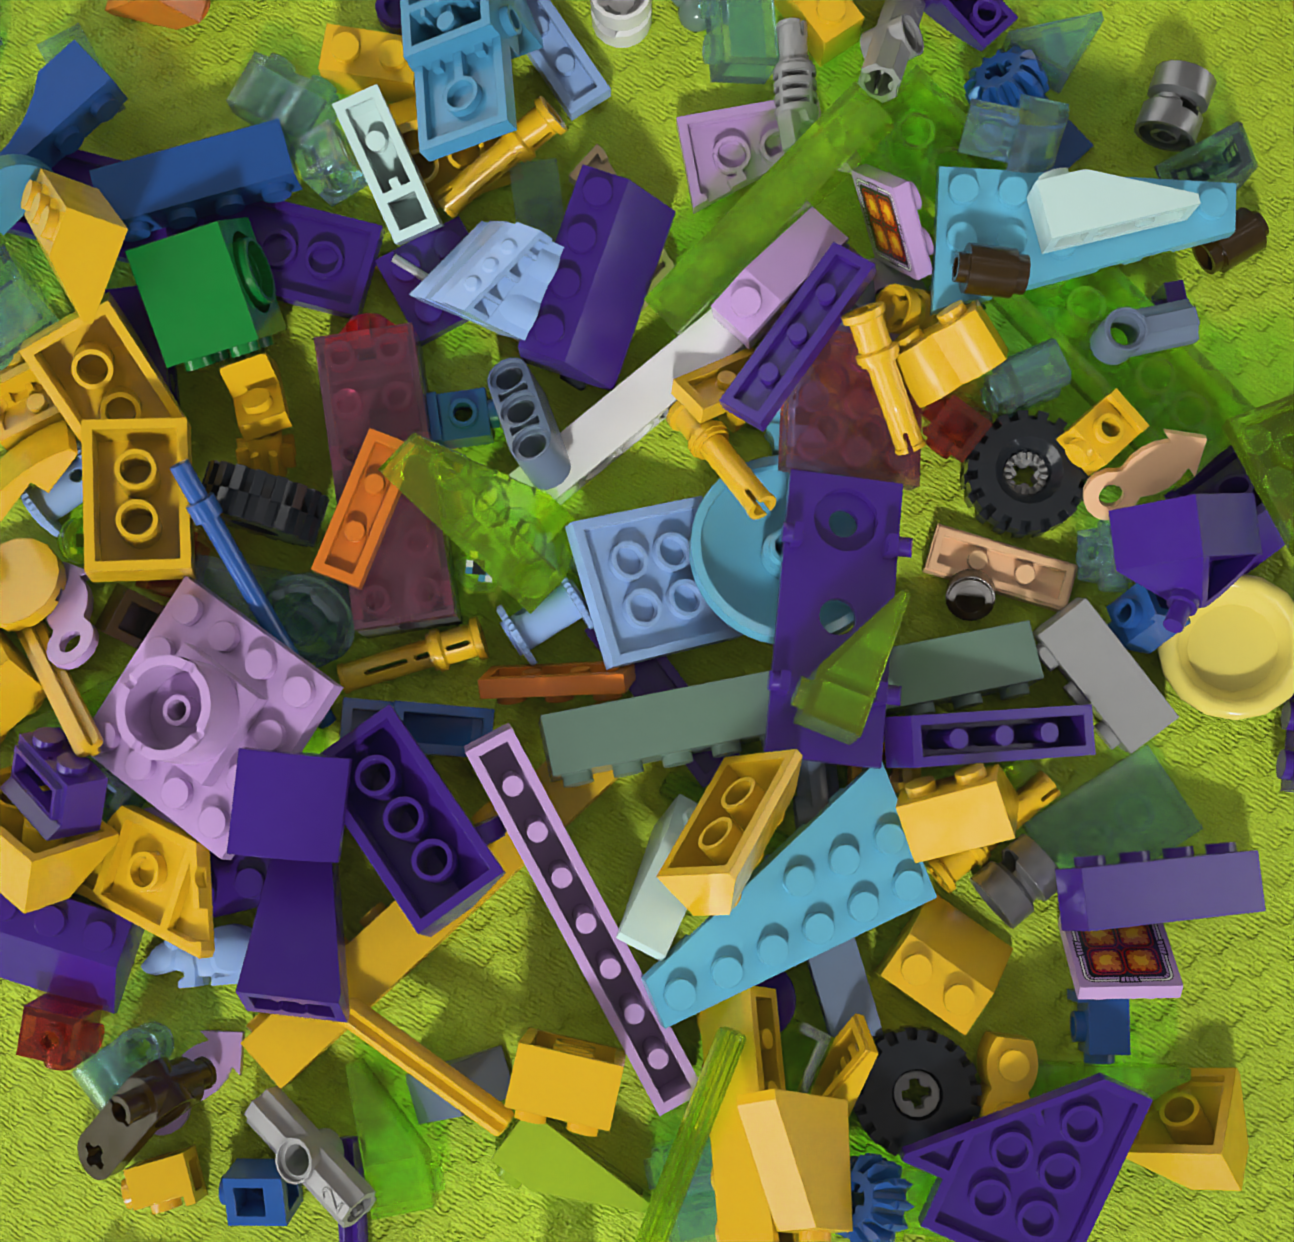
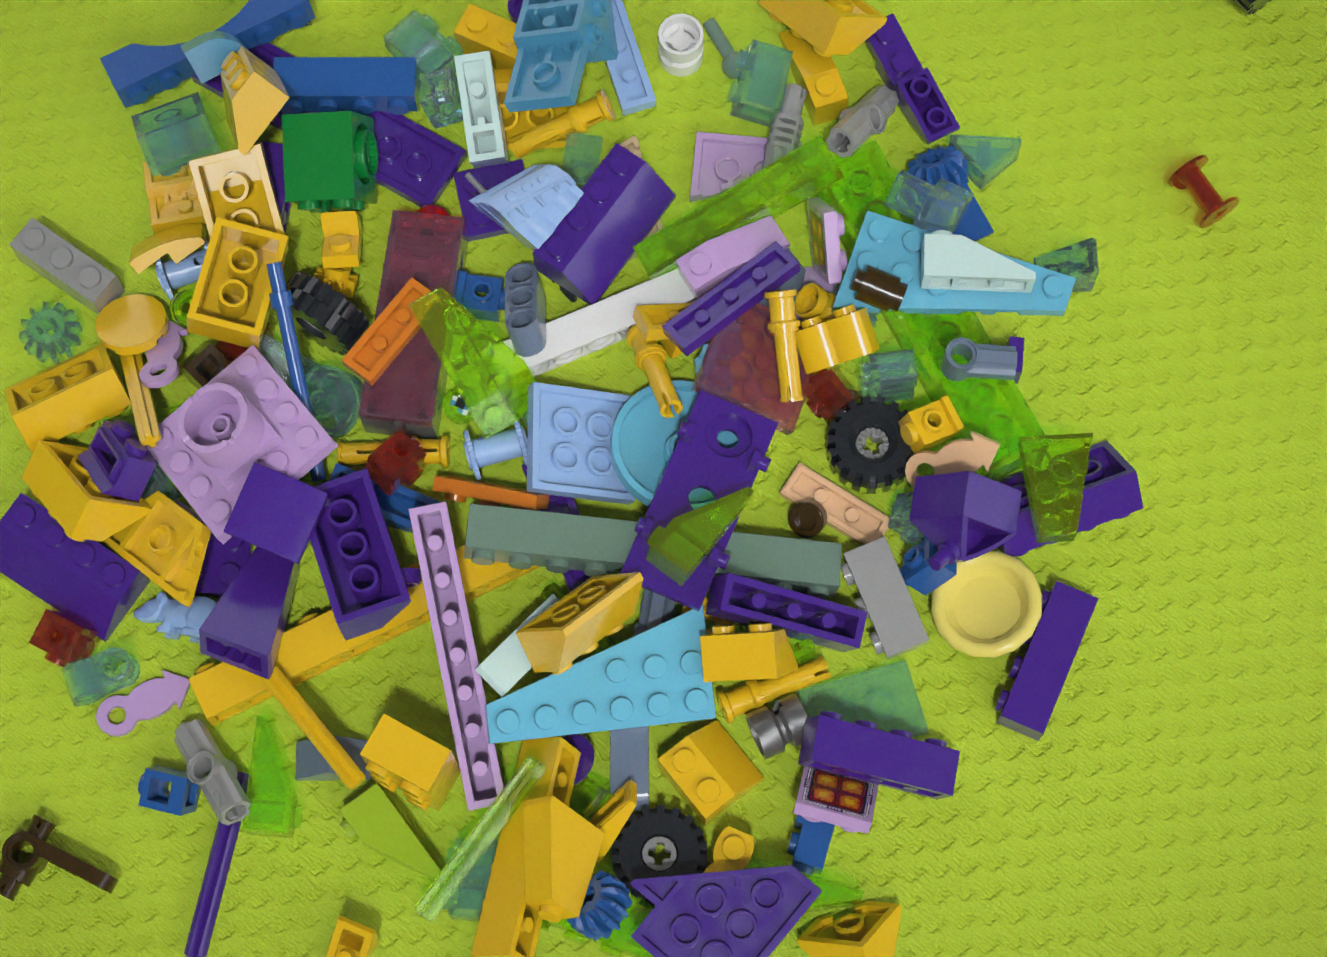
camera: 15 degrees right, 10 degrees down
(140, 1108) = (108, 698): dark brown piece -> none
(163, 1181) = (102, 763): yellow brick -> none
(424, 679) = (396, 462): none -> clear red brick
(1175, 105) = (1057, 218): flat silver wheel -> none
(1242, 244) = (1076, 323): dark brown brick -> none

